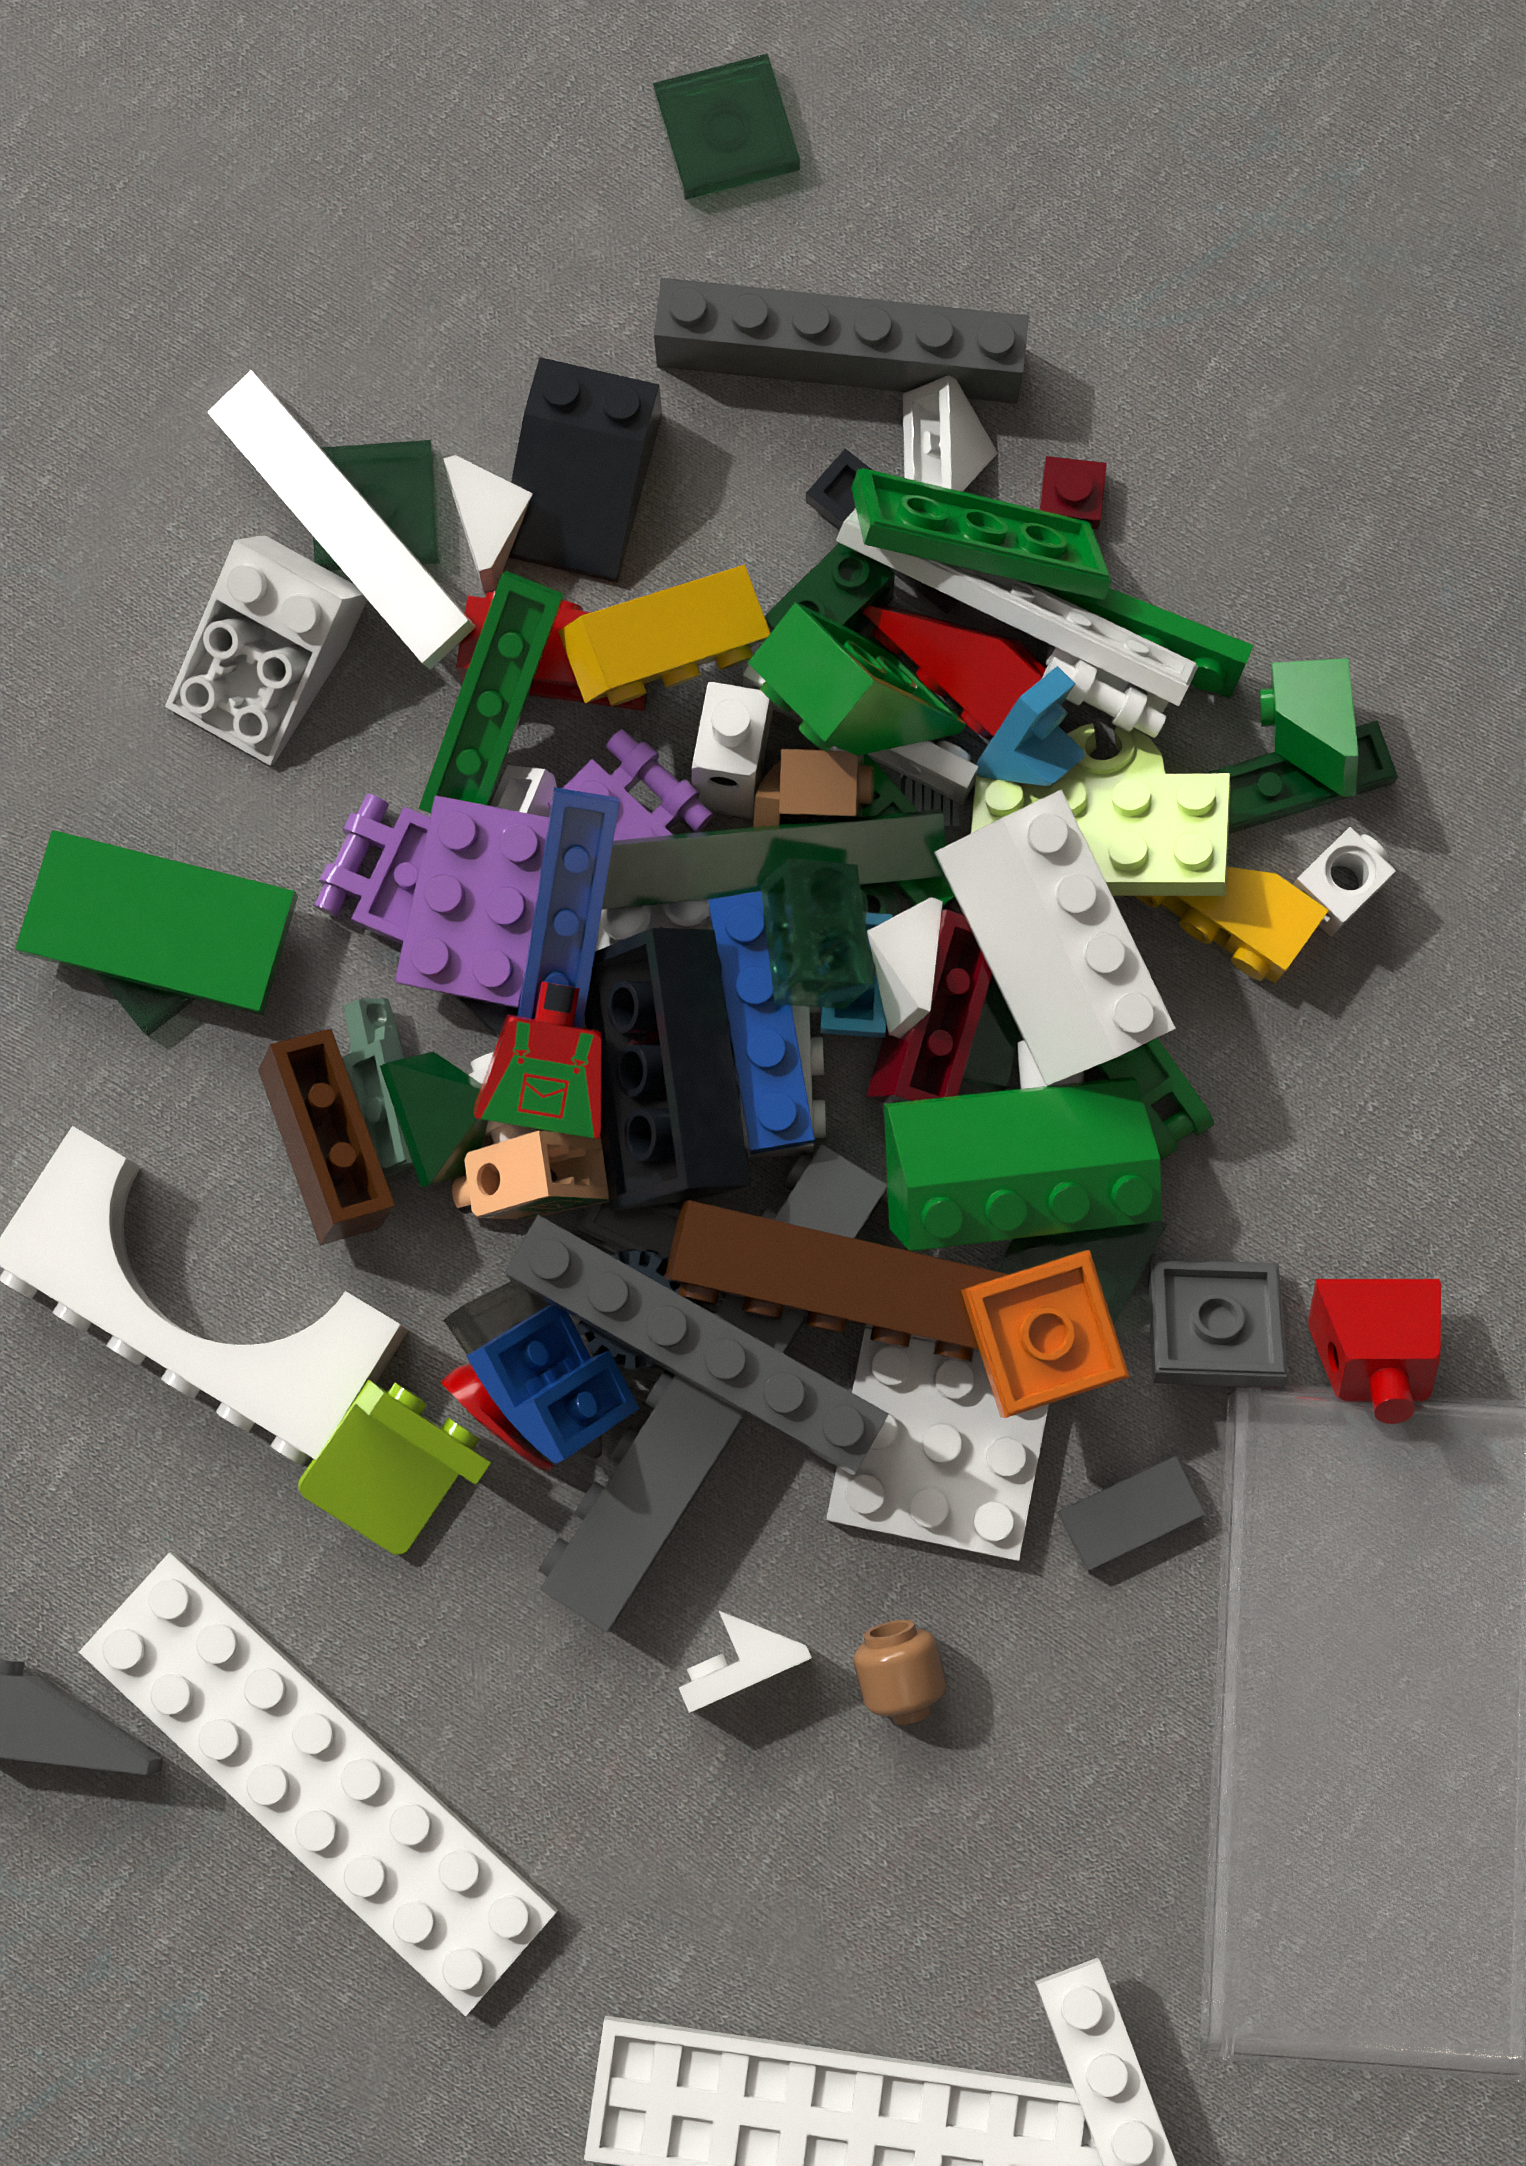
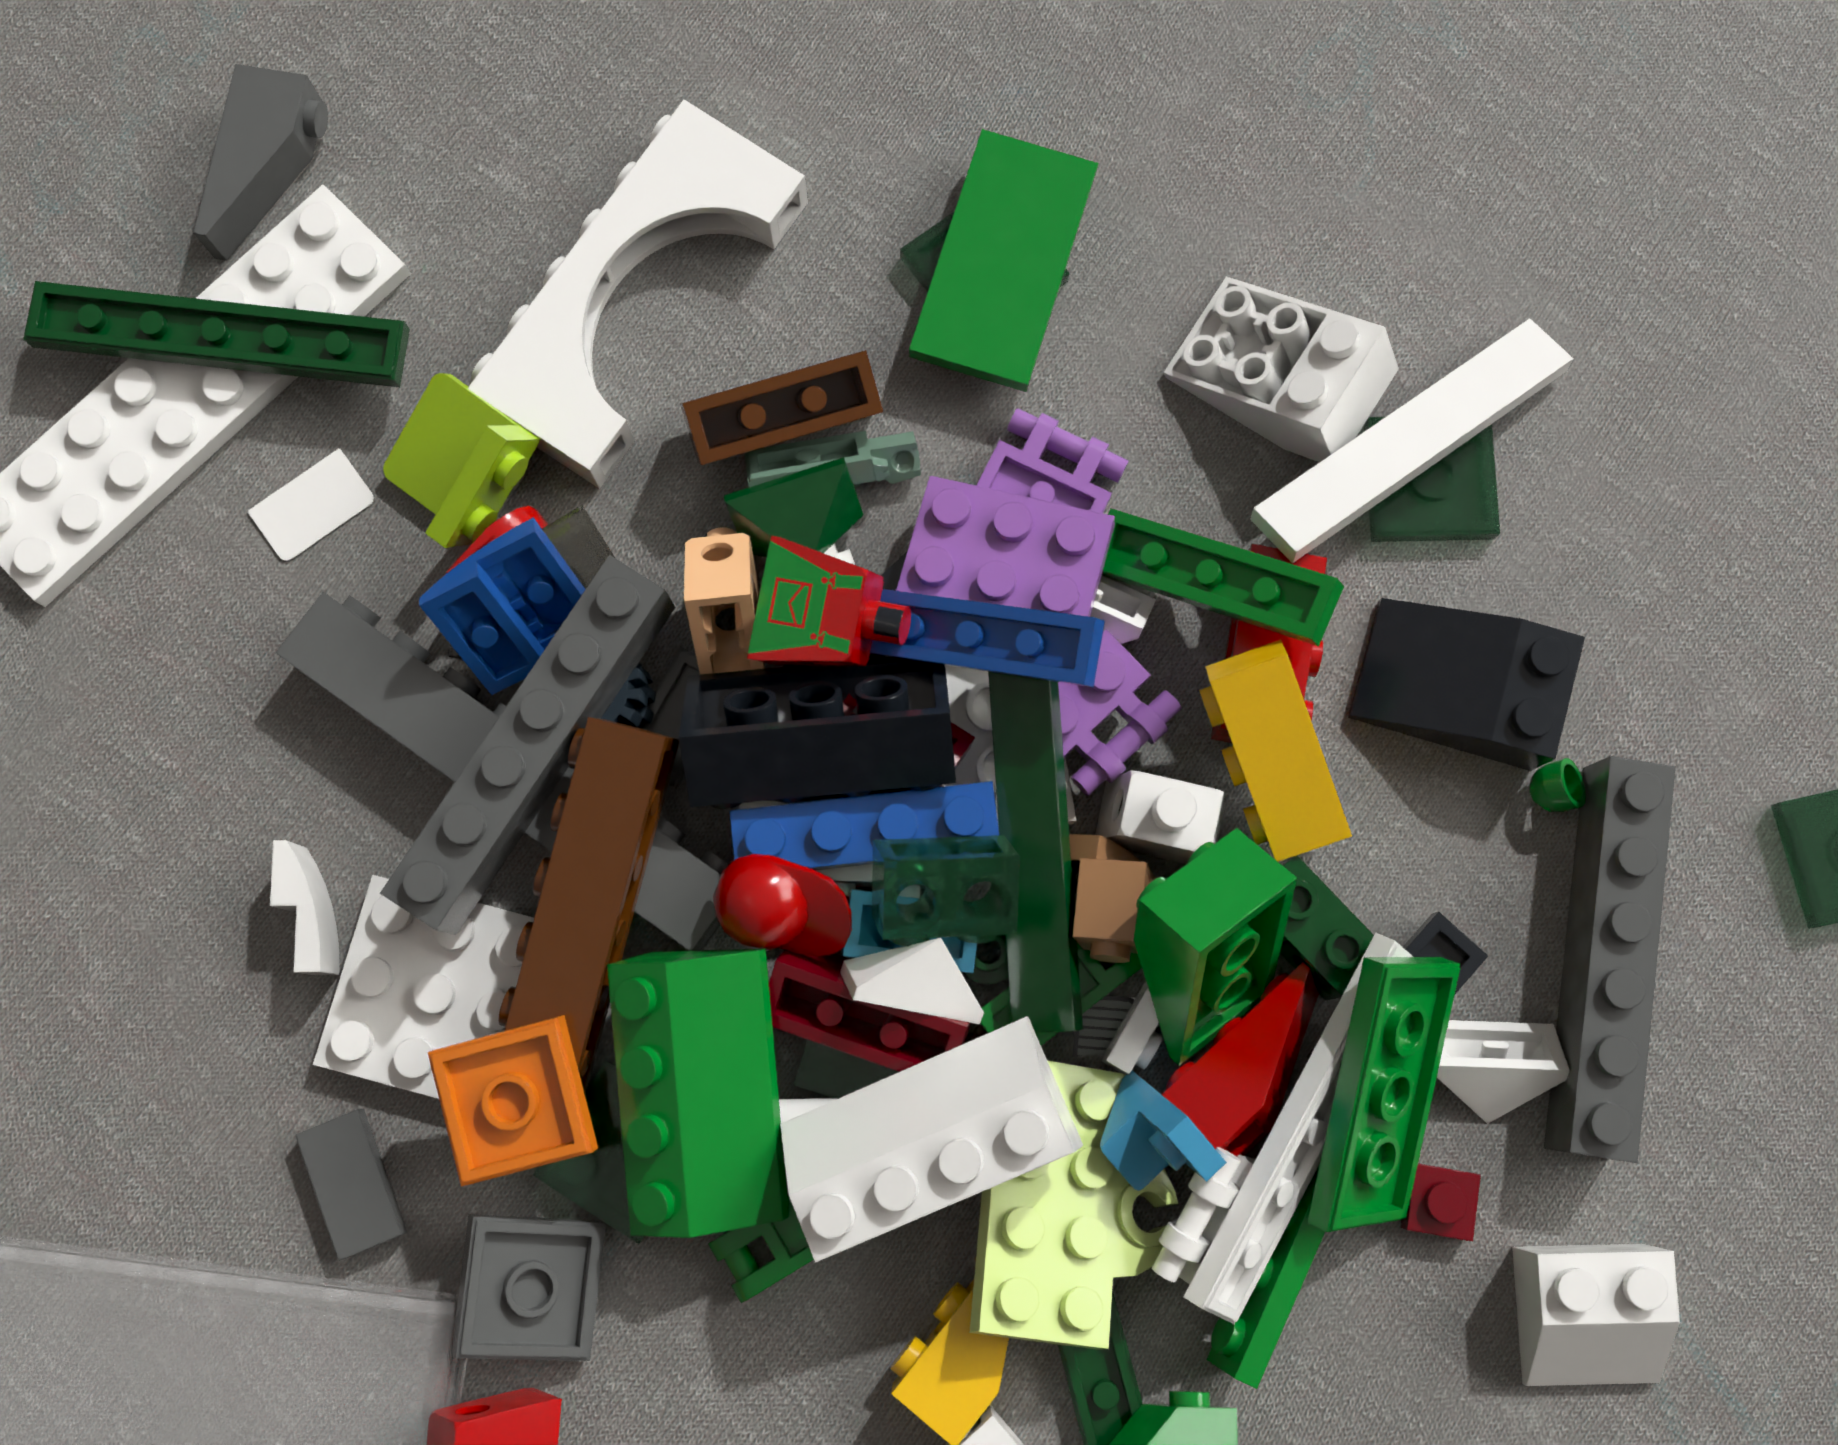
camera: 90 degrees right, 0 degrees up
(258, 1743) = (217, 334): none -> dark green tile
(437, 1632) = (311, 505): none -> white sticker
(489, 513) = (1415, 584): white slope -> none
(680, 387) = (1558, 786): none -> green hinge
(760, 1657) = (244, 800): white slope -> none
(840, 1092) = (782, 906): none -> red cap
(848, 1589) = (300, 888): none -> white slope
(900, 1671) = (215, 937): medium nougat head -> none
(1160, 357) = (1595, 1313): none -> white slope

